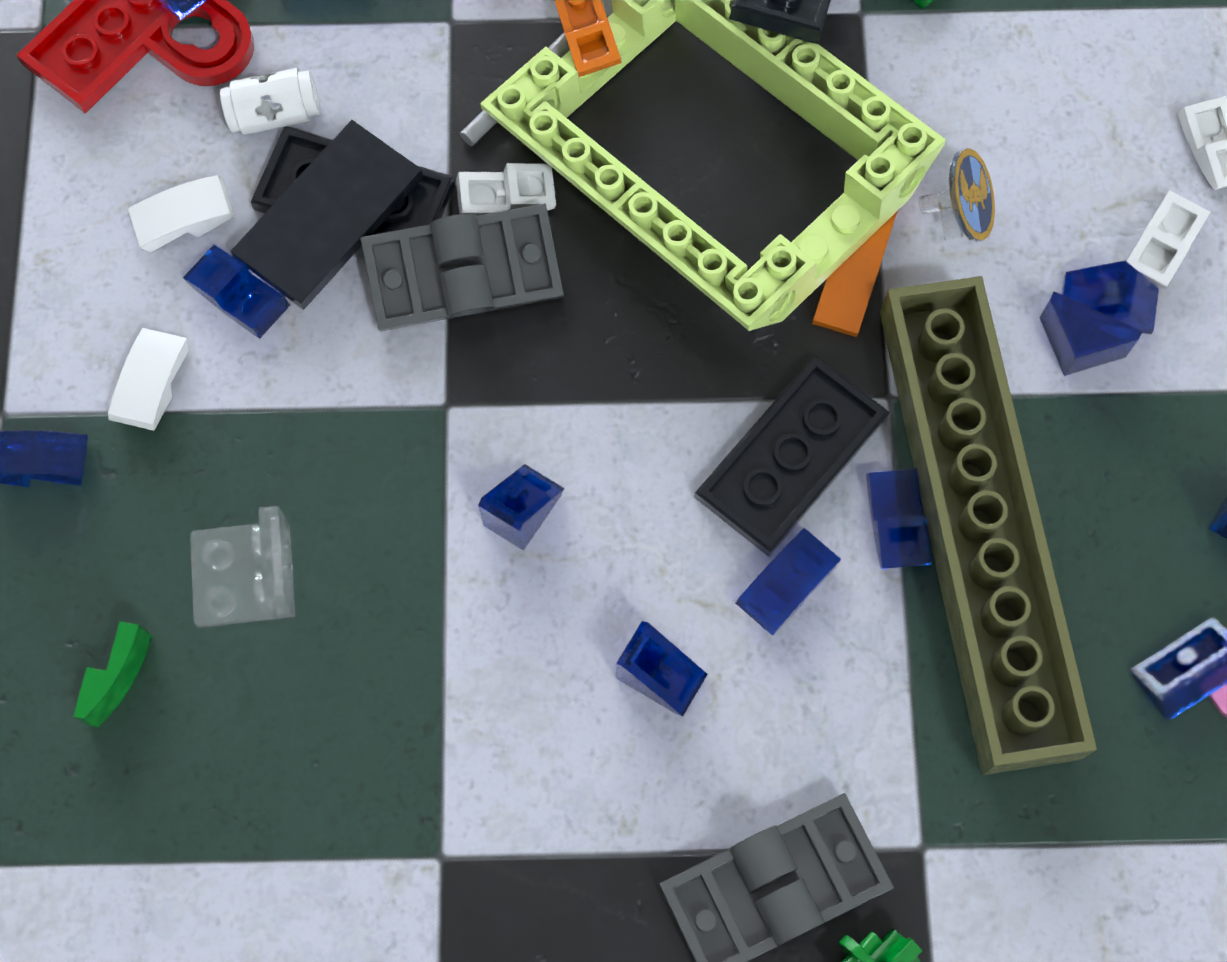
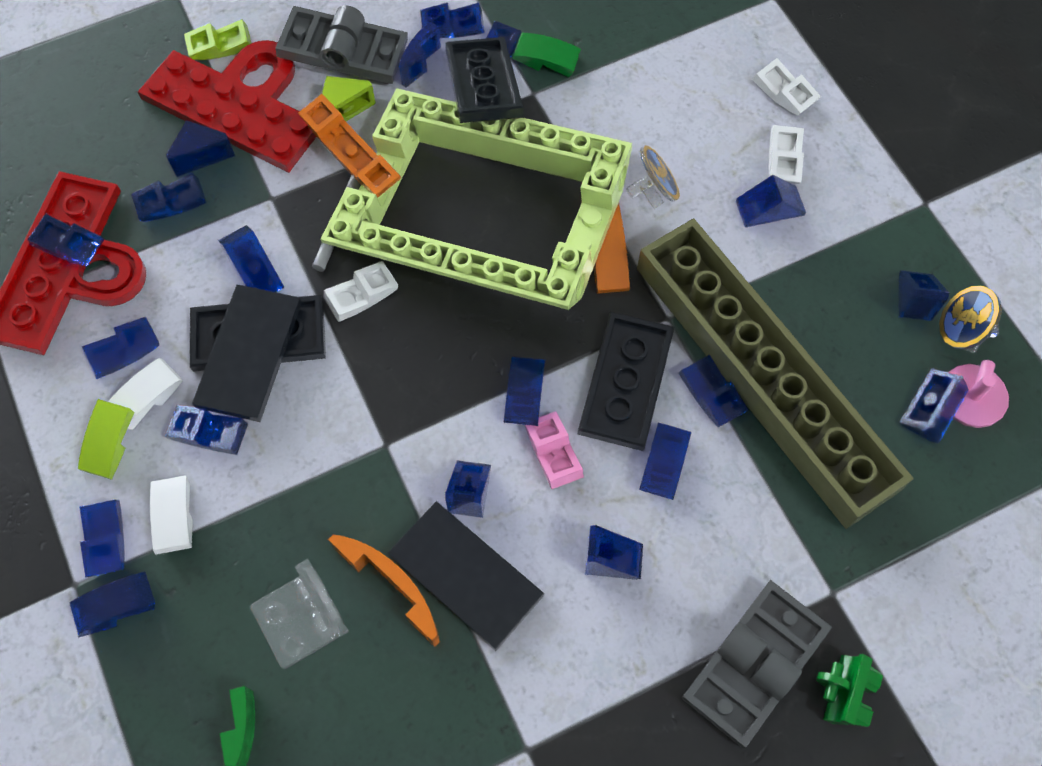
camera: 25 degrees left, 5 degrees down
(59, 372) = (103, 538): none -> clear blue slope
(107, 250) = (103, 439): none -> lime slope
(190, 143) = (125, 347): none -> clear blue slope
(250, 114) = (161, 307): white piece -> none
(384, 95) = (250, 260): none -> clear blue slope
(388, 634) = (360, 554): none -> orange slope
(462, 266) = (355, 349): dark grey plate -> none
(467, 612) = (466, 575): none -> black tile
(650, 412) = (524, 391): none -> clear blue slope
(652, 504) = (554, 451): none -> bright pink slope
(1084, 335) = (767, 230): clear blue slope -> none

